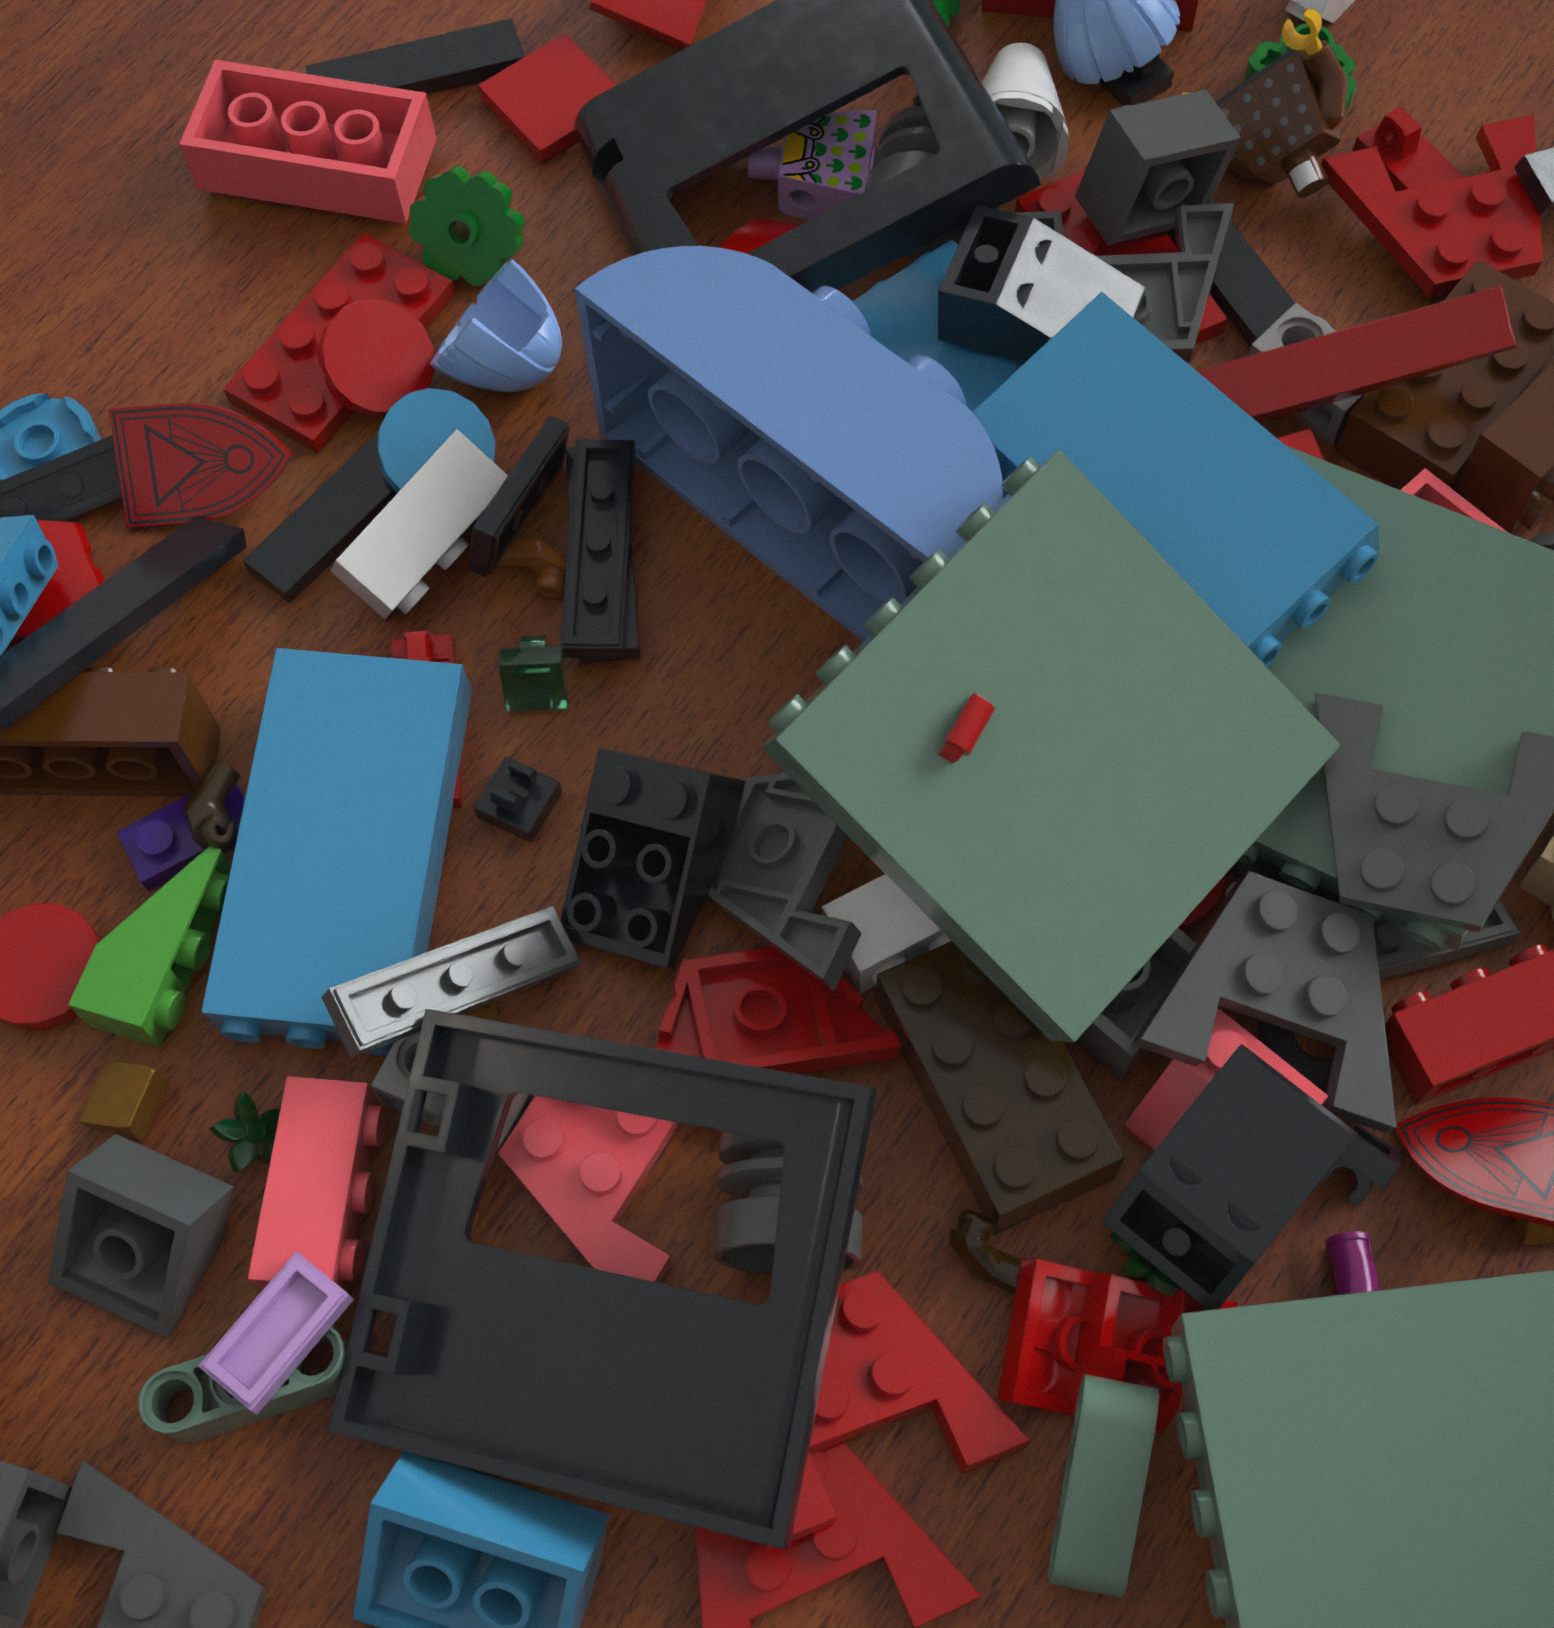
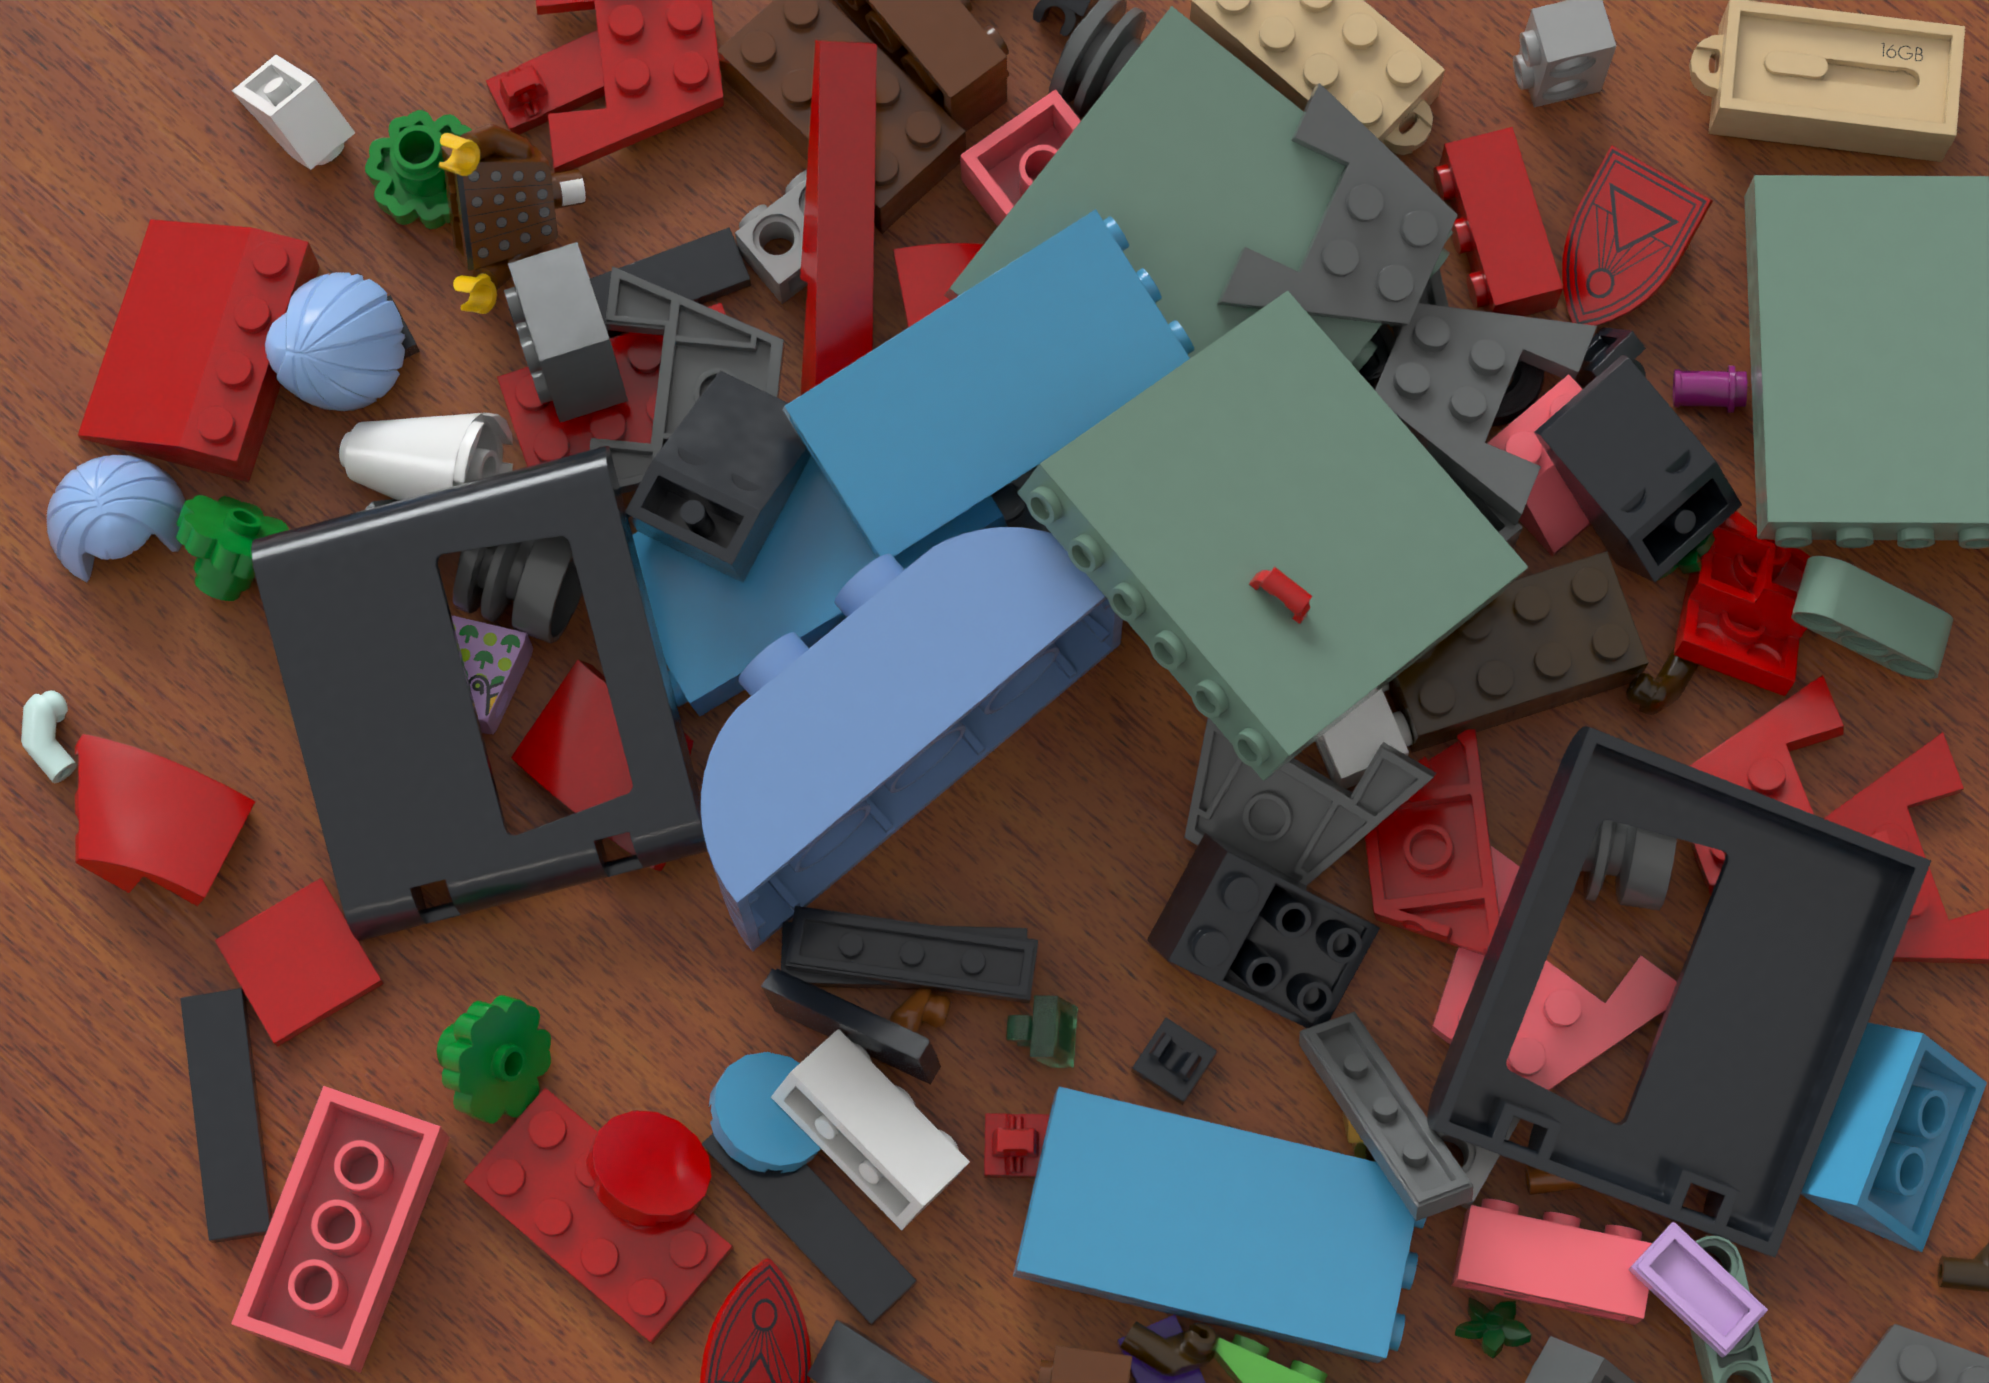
camera: 85 degrees left, 10 degrees up
(505, 338) = (641, 1037): light blue hair -> none

